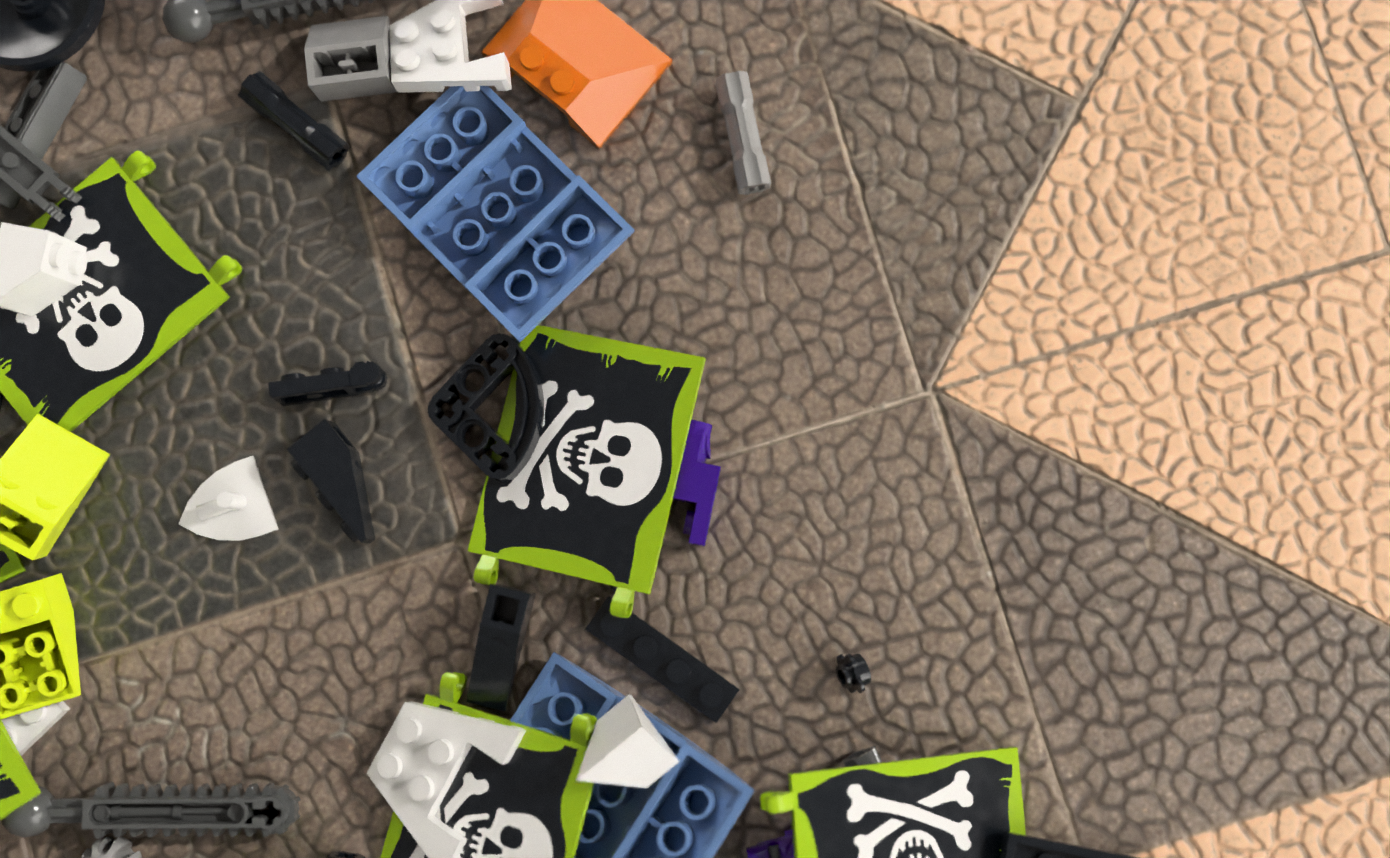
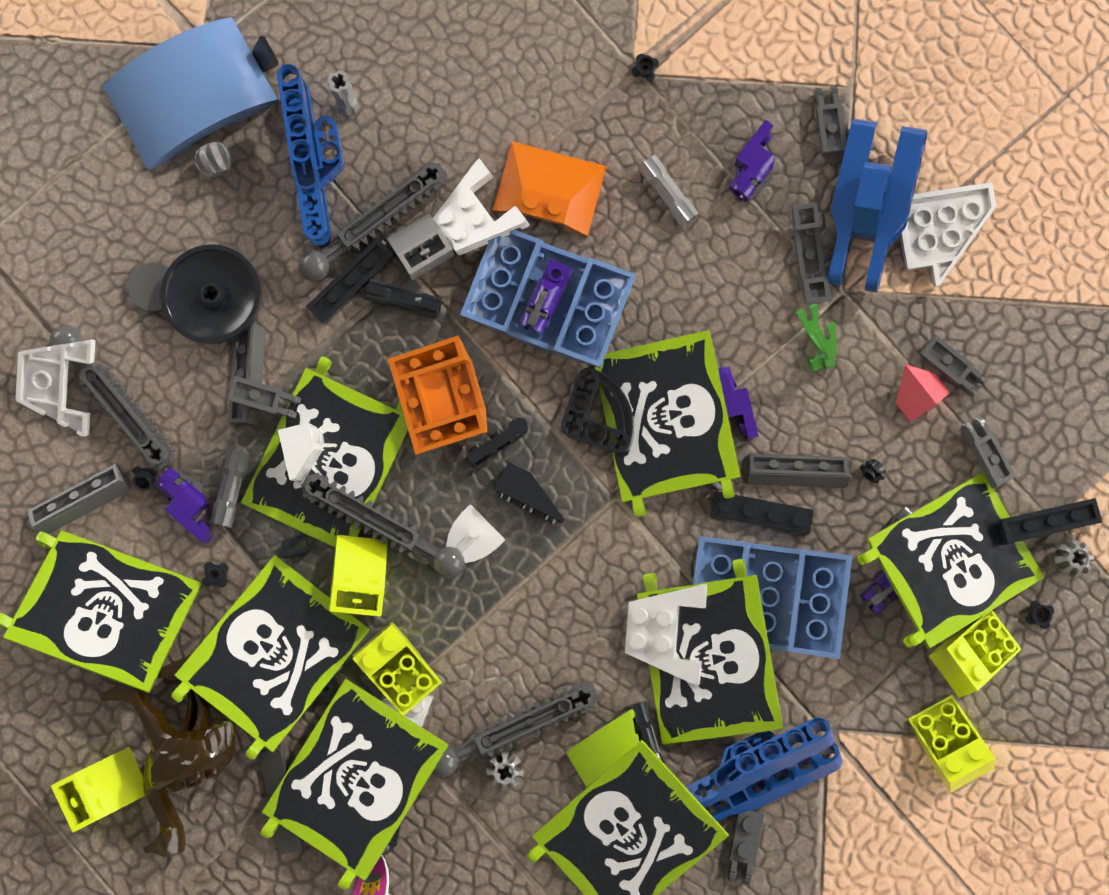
camera: 30 degrees left, 0 degrees up
(171, 523) = (447, 561): none -> dark grey gear
(230, 63) = (350, 281): none -> black plate
(275, 278) = (439, 394): none -> orange slope
(487, 204) = (546, 296): none -> dark purple plate
(499, 645) = (667, 546): black slope -> none
(626, 749) = (770, 566): white slope -> none
(744, 621) = (798, 470): none -> dark grey slope
(864, 456) = (826, 346): none -> bright green piece
(885, 148) = (754, 165): none -> dark purple plate
(907, 312) = (809, 253): none -> dark grey slope
(974, 587) = (919, 392): none -> coral slope
(1020, 260) = (862, 194): none -> blue beam
(1023, 139) = (830, 123): none -> dark grey hinge
(1035, 723) = (988, 452): none -> dark grey hinge
(1041, 567) = (952, 364): none -> dark grey hinge
(1118, 357) = (943, 227): none -> white wing

